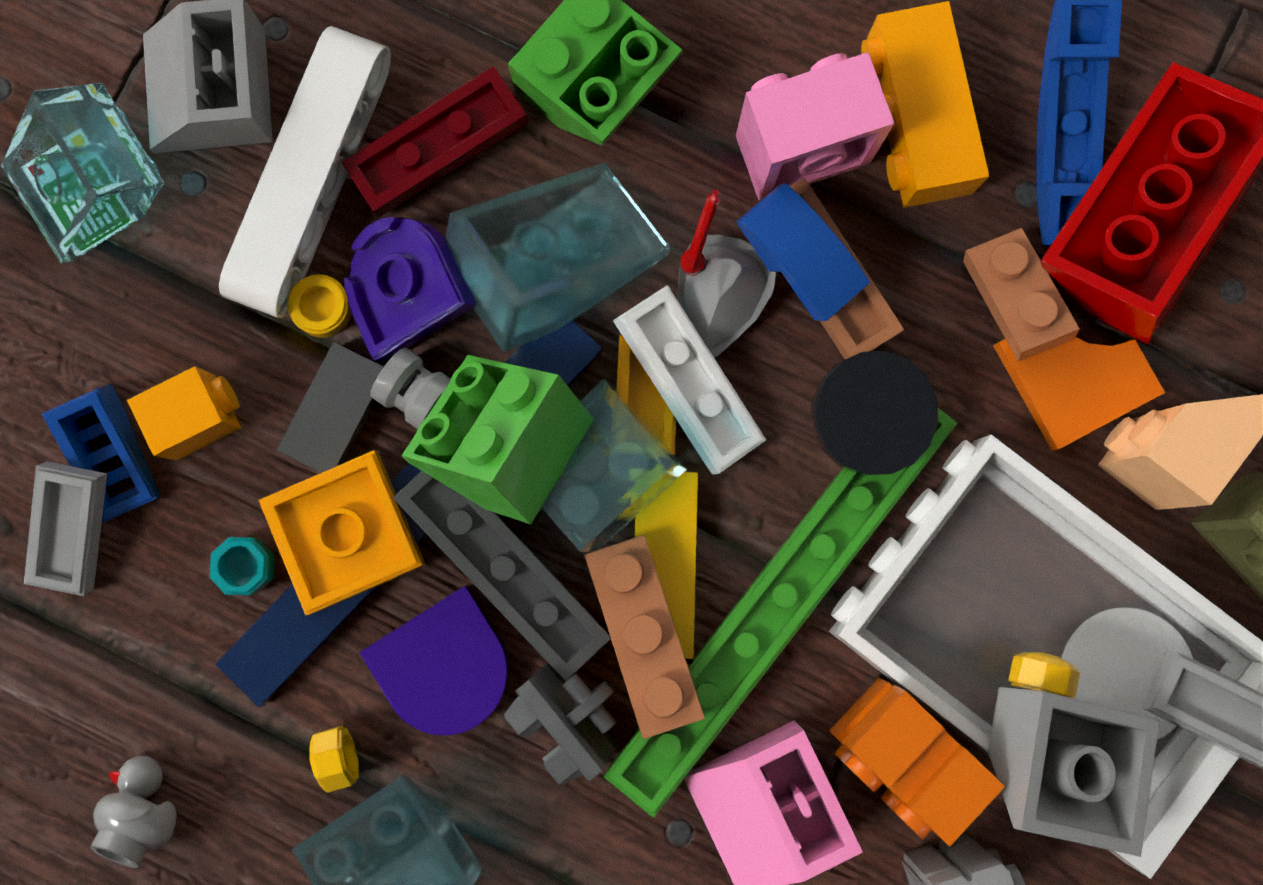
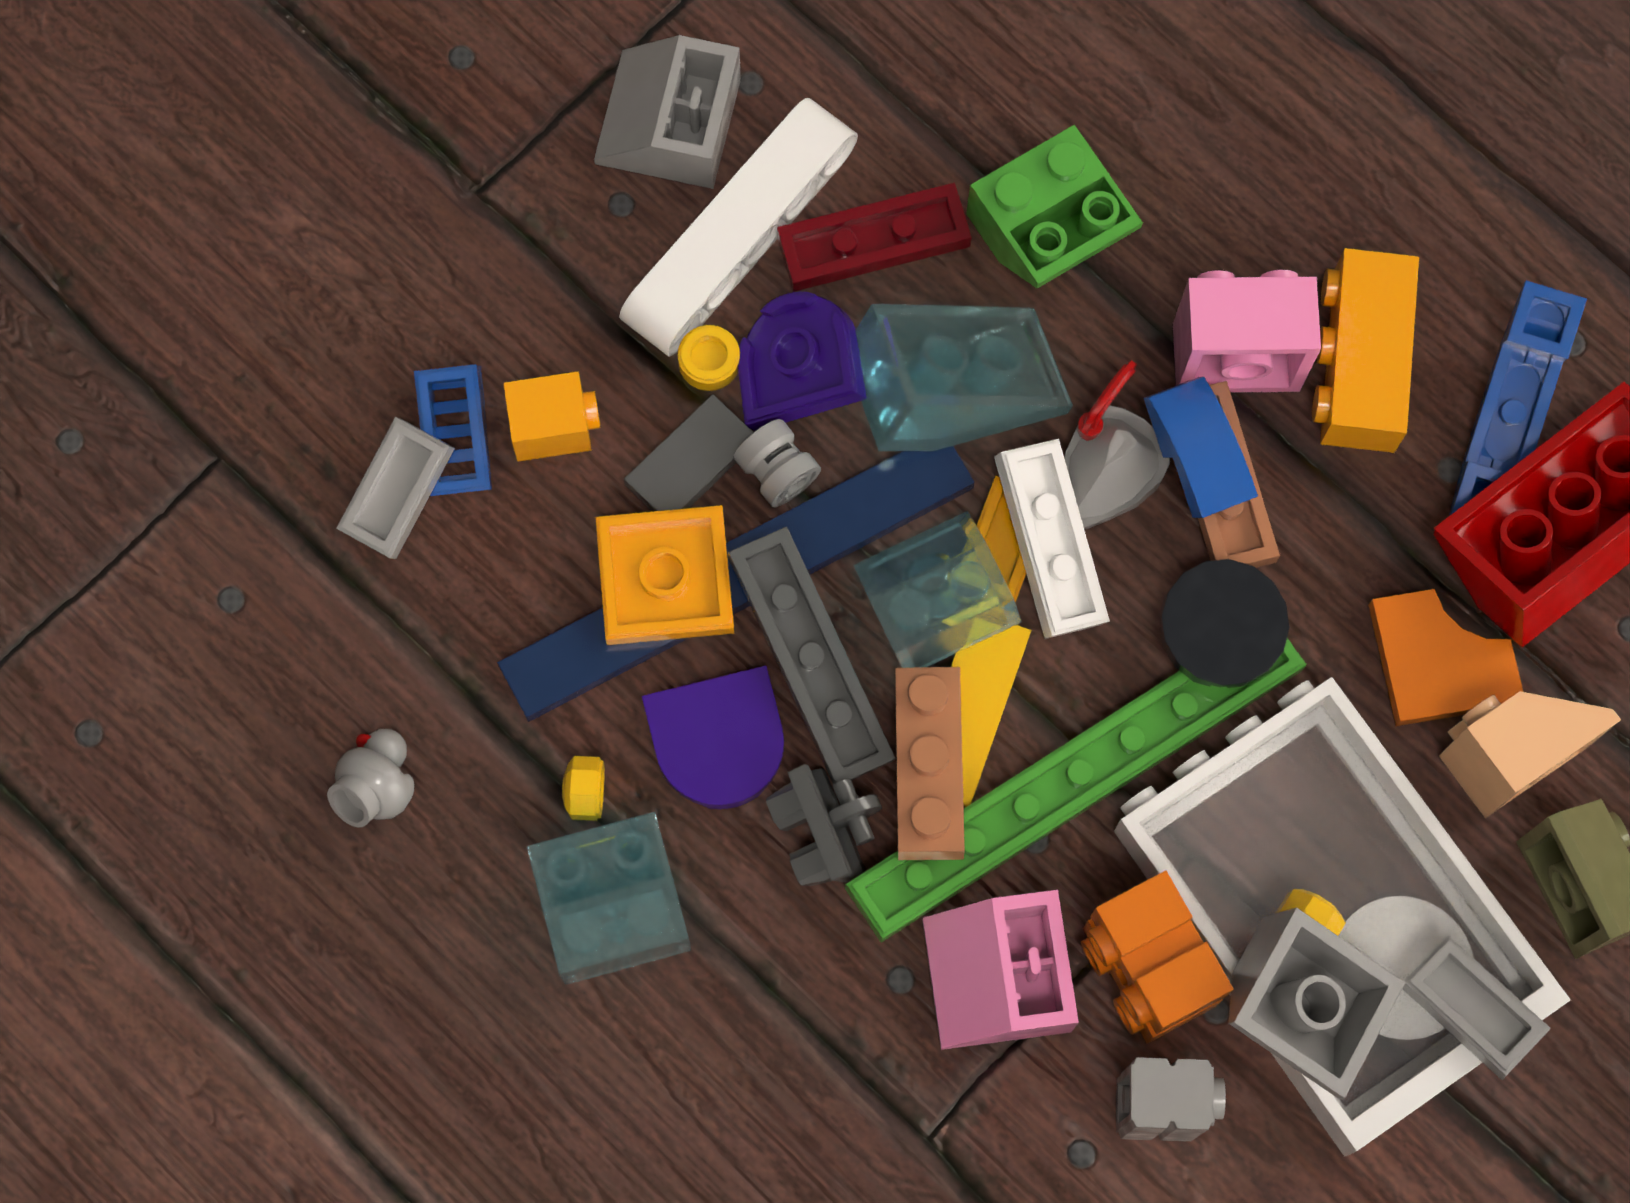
camera: 15 degrees right, 10 degrees down
(79, 168) = (521, 158): clear light blue slope -> none
(242, 566) = (554, 578): teal tile -> none
(500, 436) = (852, 525): bright green slope -> none
(1020, 294) = (1407, 559): nougat plate -> none

